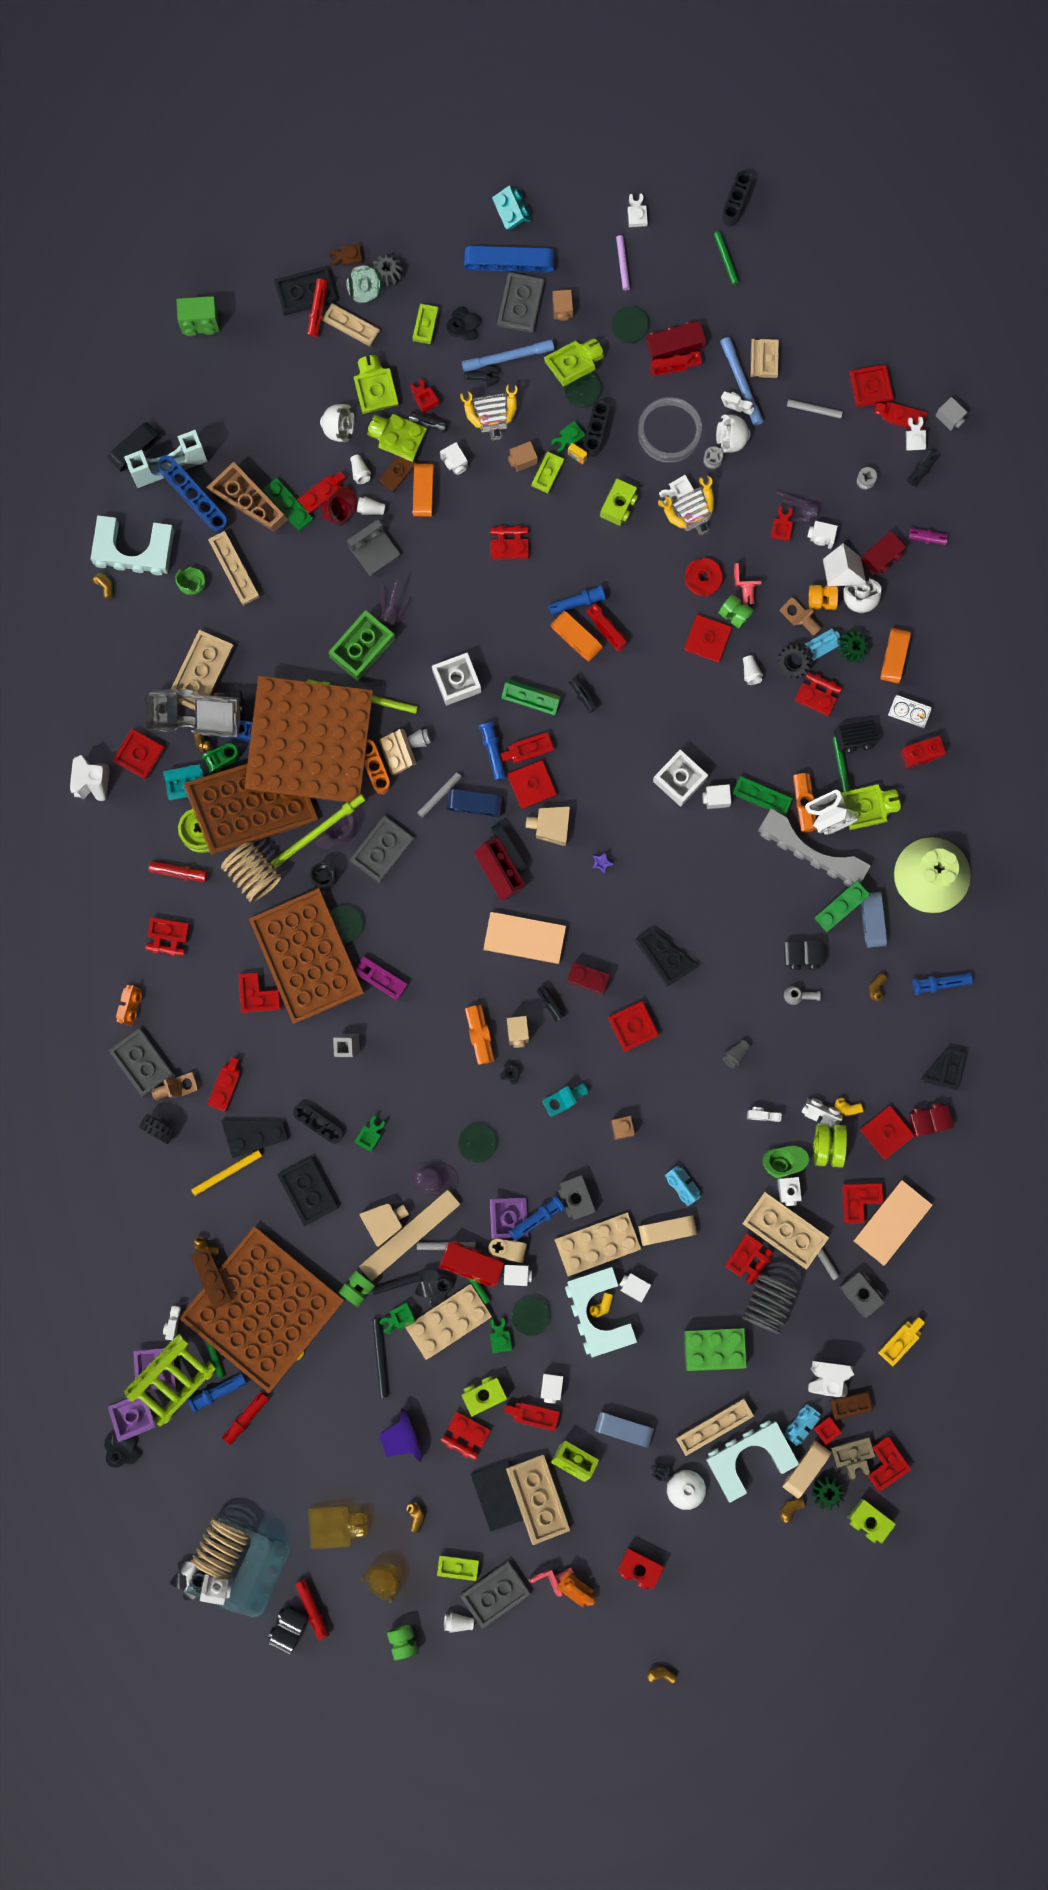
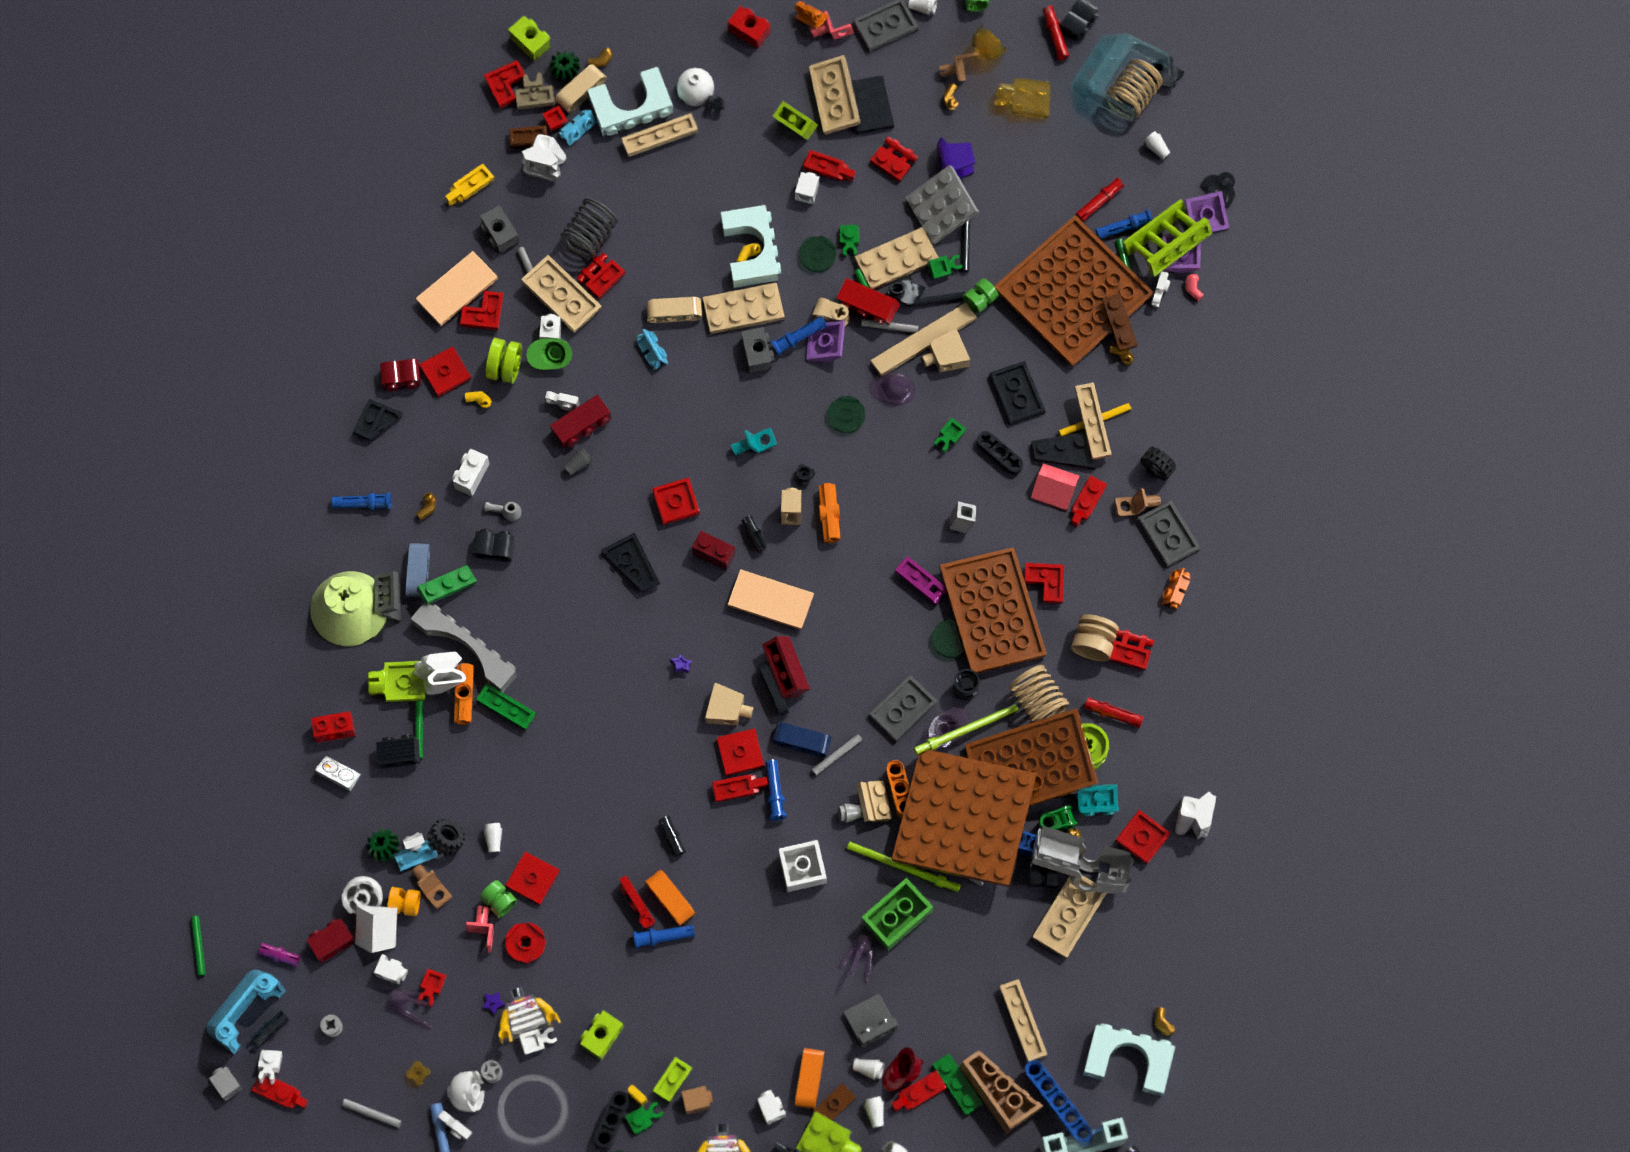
camera: 170 degrees left, 10 degrees down
(141, 1333) = (1191, 287): none -> coral arm
(190, 580) = (1070, 1011): bright green hair -> none
(192, 1491) = (1157, 145): none -> white cone
(202, 938) = (1094, 637): none -> tan wheel
(214, 1596) = (1148, 50): white brick -> none
(227, 1166) = (1092, 421): none -> tan plate
(258, 1096) = (1054, 487): none -> coral slope
(408, 1384) = (942, 204): none -> light grey plate
(411, 1550) = (957, 67): none -> medium nougat bracket
(457, 1568) = (916, 49): lime plate -> none
(496, 1395) = (878, 180): lime brick -> none
(509, 548) = (725, 1003): red plate -> none
(517, 1275) = (825, 288): white brick -> none
(530, 697) = (727, 839): green plate -> none
(622, 1128) = (702, 406): medium nougat brick -> none
(624, 1429) = (744, 143): sand blue beam -> none
(634, 1287) = (714, 263): white brick -> none
(680, 778) = (587, 733): white brick -> none
(715, 1349) = (647, 199): bright green brick -> none
(717, 796) = (552, 711): white brick -> none
(723, 521) = (493, 1002): none -> dark purple piece
(740, 1095) = (581, 422): none -> dark red brick
(779, 444) = (412, 1073): none -> clear yellow plate
(815, 698) = (432, 800): red plate -> none
(816, 1108) = (498, 394): white hinge -> none
(824, 651) = (414, 842): none -> white plate
(841, 1025) = (471, 472): none -> white brick
(871, 386) = (305, 1128): red plate -> none
(895, 655) = (340, 831): orange beam -> none
(896, 882) = (387, 595): none -> dark grey bracket
(943, 499) = (222, 1023): none -> medium azure windscreen
(1004, 535) = (198, 946): none -> green bar

